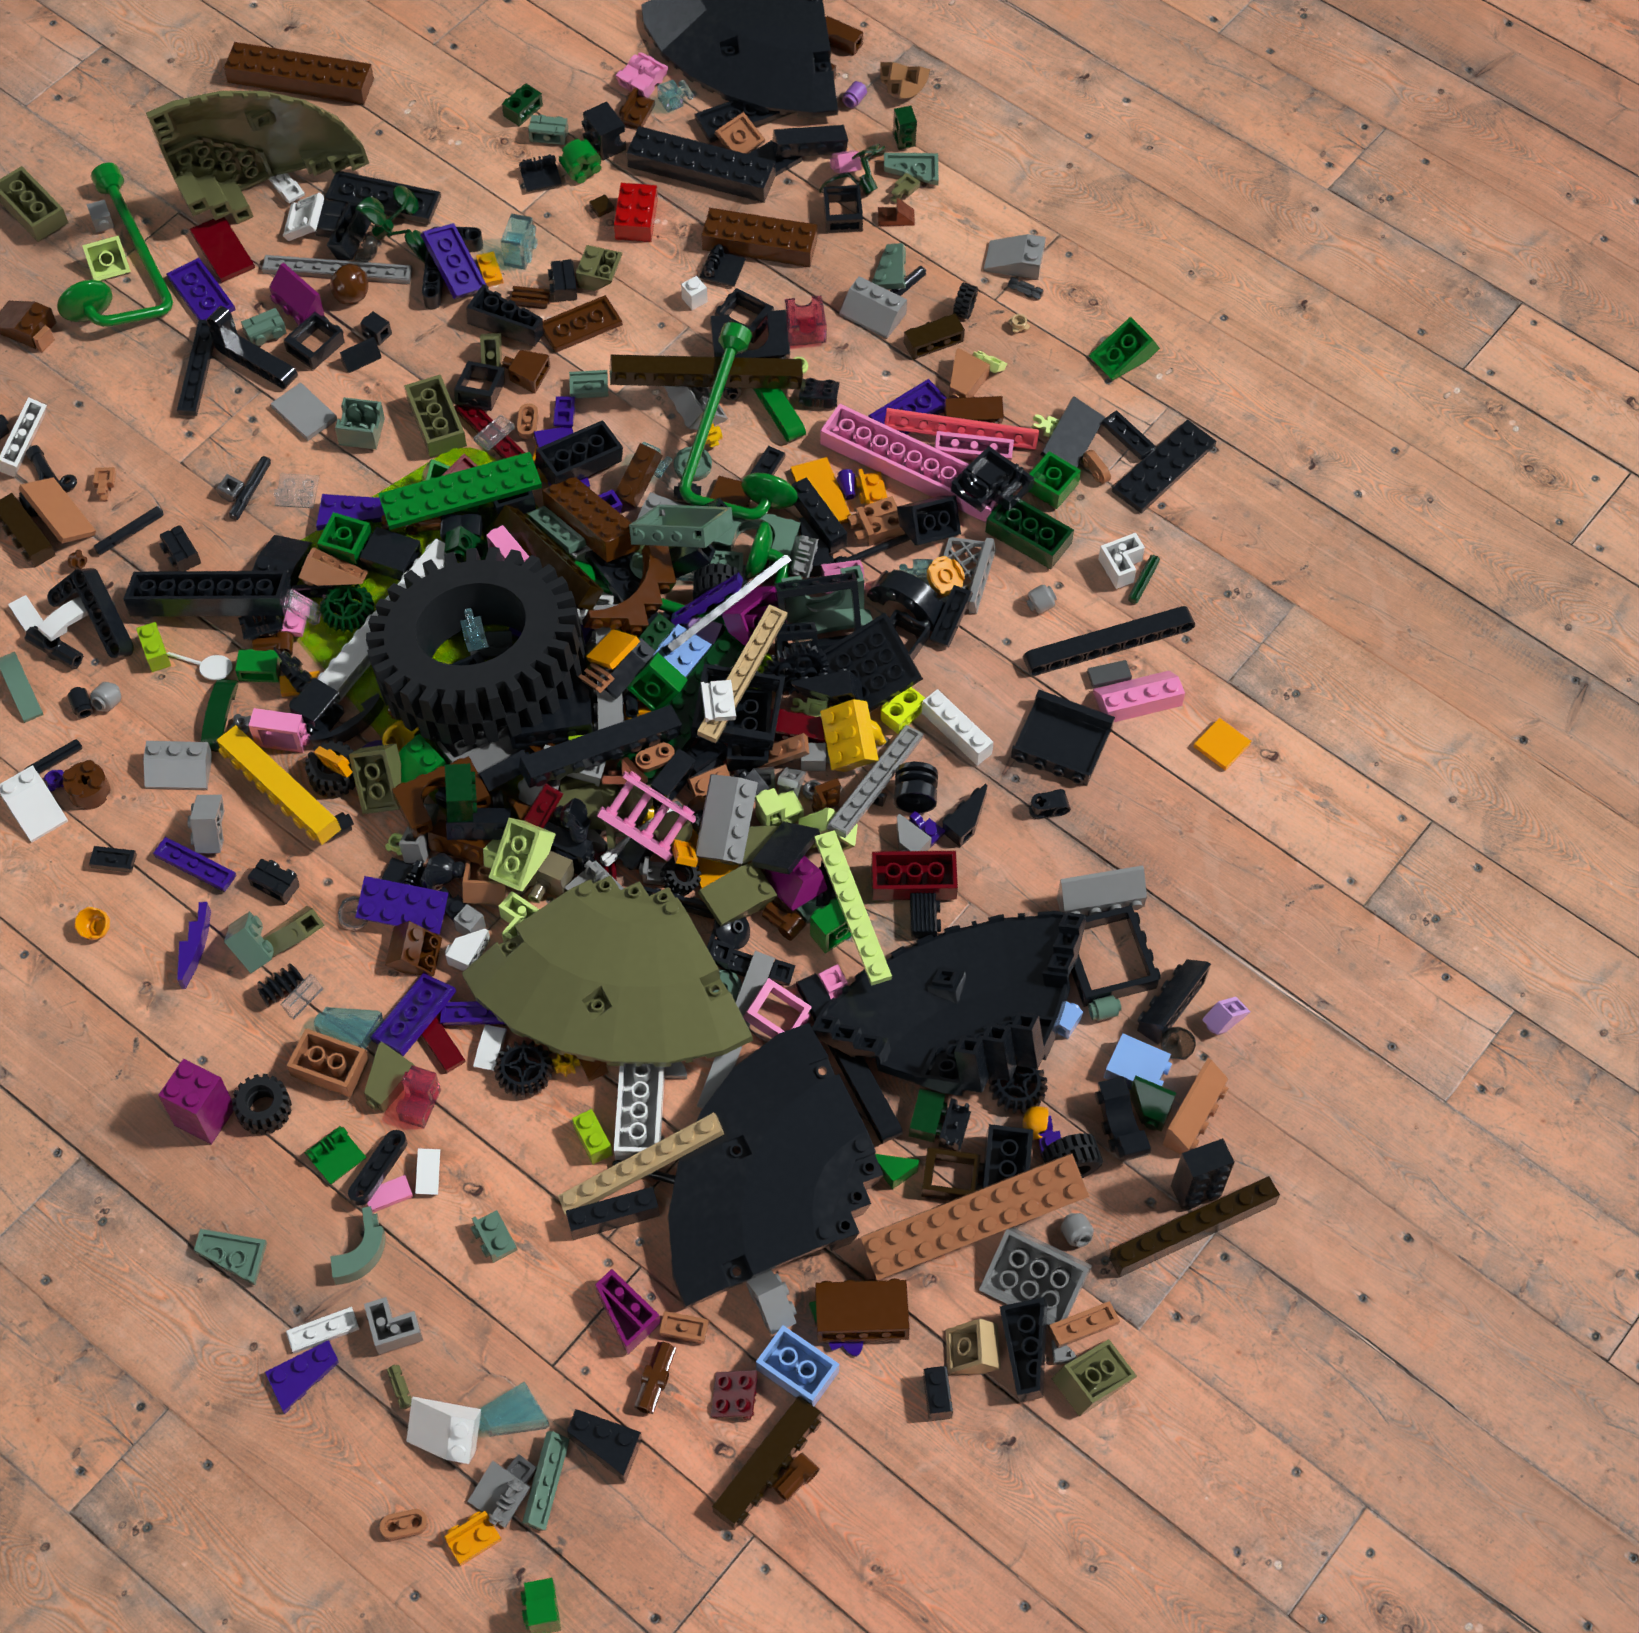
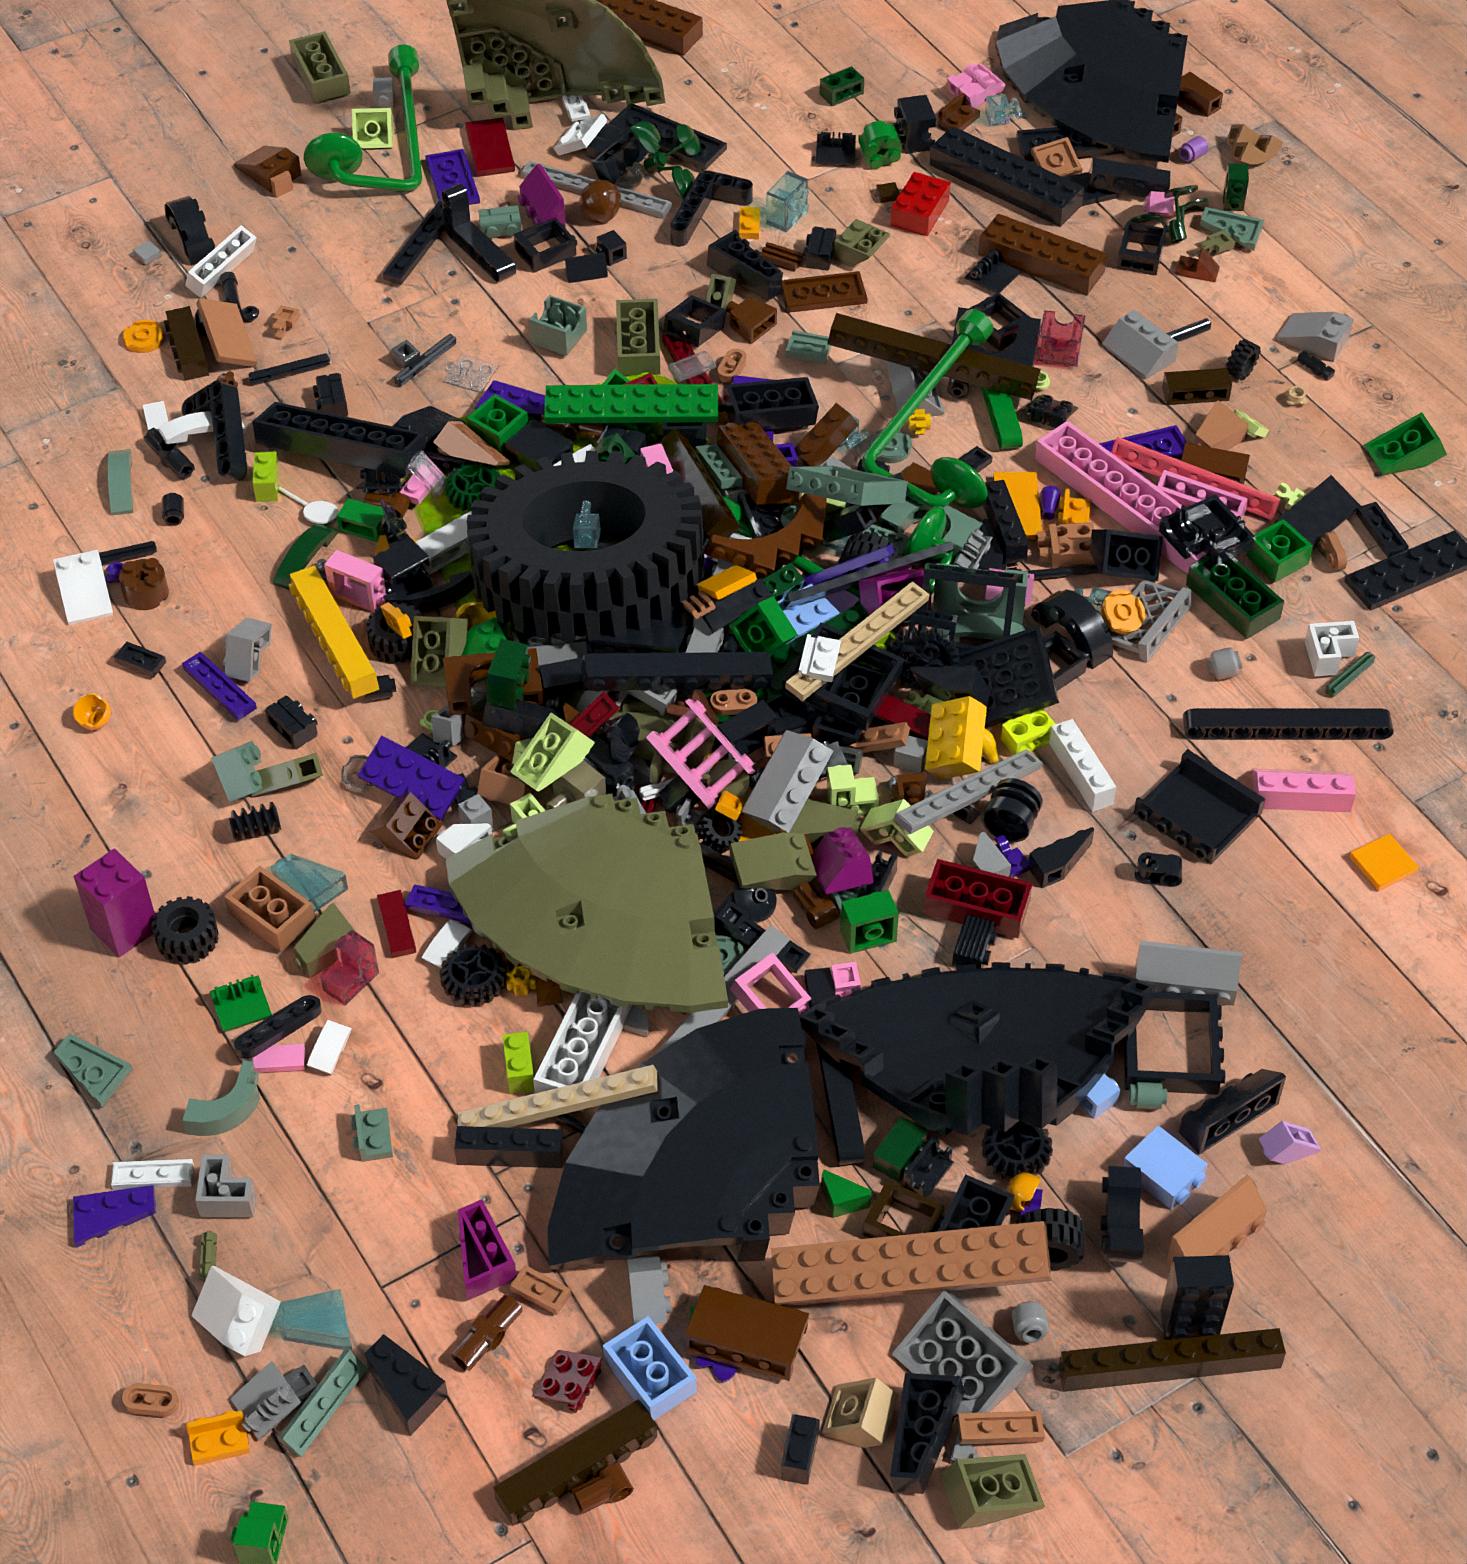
camera: 20 degrees right, 10 degrees down
(105, 696) = (199, 509): light grey head -> none
(177, 765) = (242, 589): light grey slope -> none
(192, 950) = (181, 764): dark purple slope -> none
(301, 996) = (272, 838): clear tile -> none
(304, 411) = (507, 305): light grey tile -> none
(413, 1014) = (380, 887): dark purple tile -> none
(441, 870) = (465, 756): black hair -> none
(453, 260) = (712, 201): dark purple plate -> none
(548, 129) = (858, 112): sand green brick -> none
(564, 411) = (774, 365): dark purple slope -> none
(694, 293) = (952, 288): white brick -> none
(786, 847) = (842, 827): black tile -> none
(790, 780) = (879, 769): light grey slope -> none
(853, 908) = (892, 906): yellowish green plate -> none
(891, 270) = (1174, 312): sand green wing -> none
(951, 616) = (1115, 653): black plate -> none
(1109, 674) = (1276, 757): dark grey tile -> none
(1151, 1103) = (1166, 1208): dark green slope -> none
(1178, 1043) = (1221, 1155): clear smoke hair -> none

